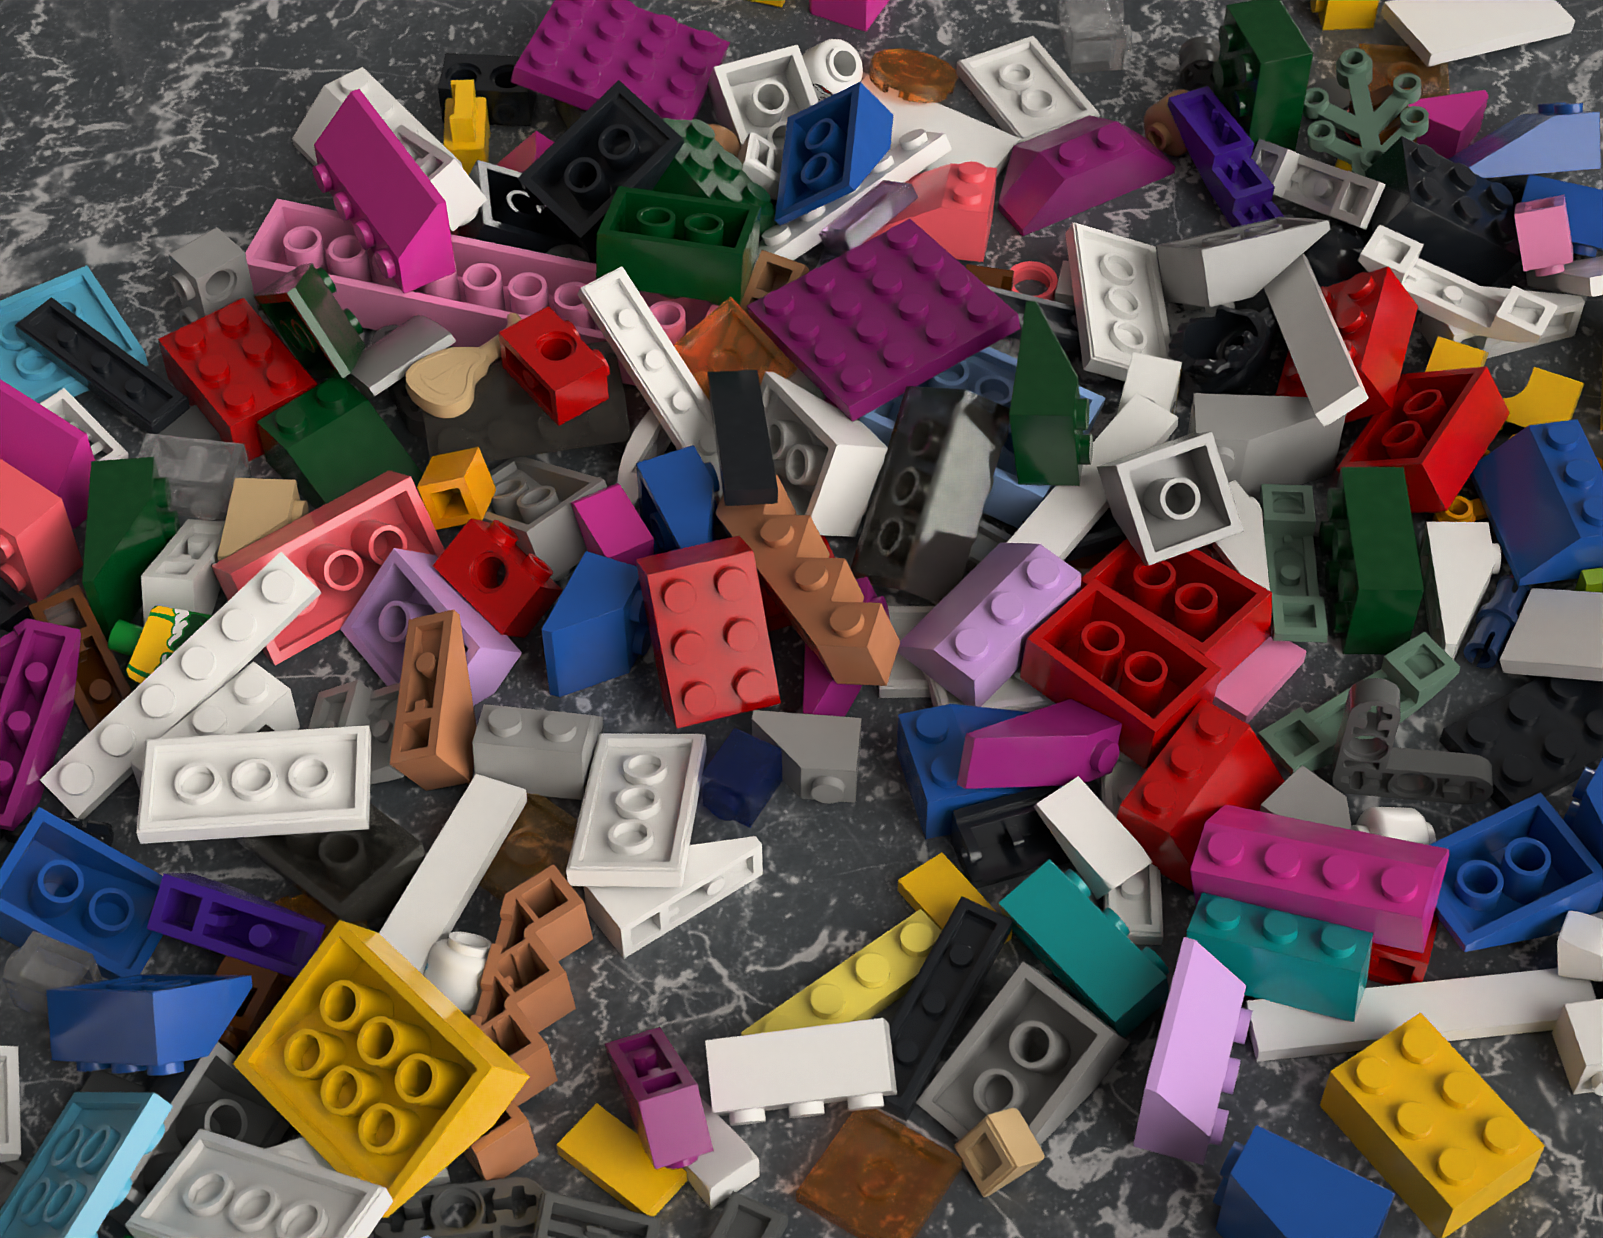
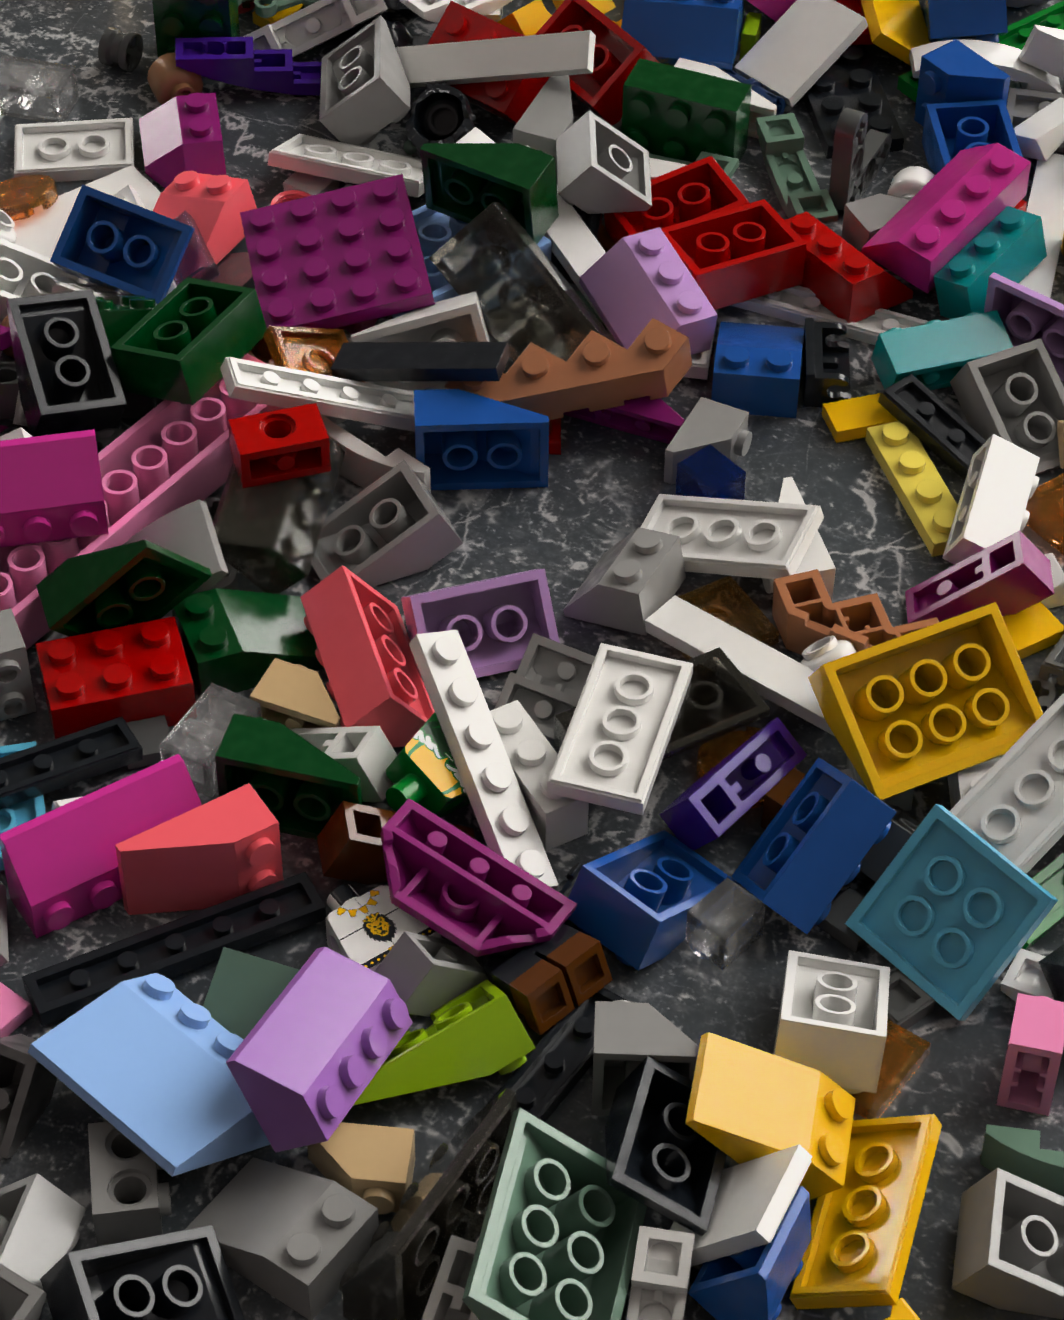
camera: 70 degrees left, 5 degrees down
(434, 705) = (564, 613): nougat slope -> none
(447, 378) = (239, 517): tan piece -> none
(456, 488) = (350, 547): light orange brick -> none
(472, 569) = (432, 566): red brick -> none
(595, 626) = (531, 511): blue slope -> none
(613, 525) = (456, 478): dark pink slope -> none
(708, 631) = (595, 439): brick -> none
(1041, 748) = (780, 306): magenta slope -> none
(1092, 837) = (861, 314): white slope -> none

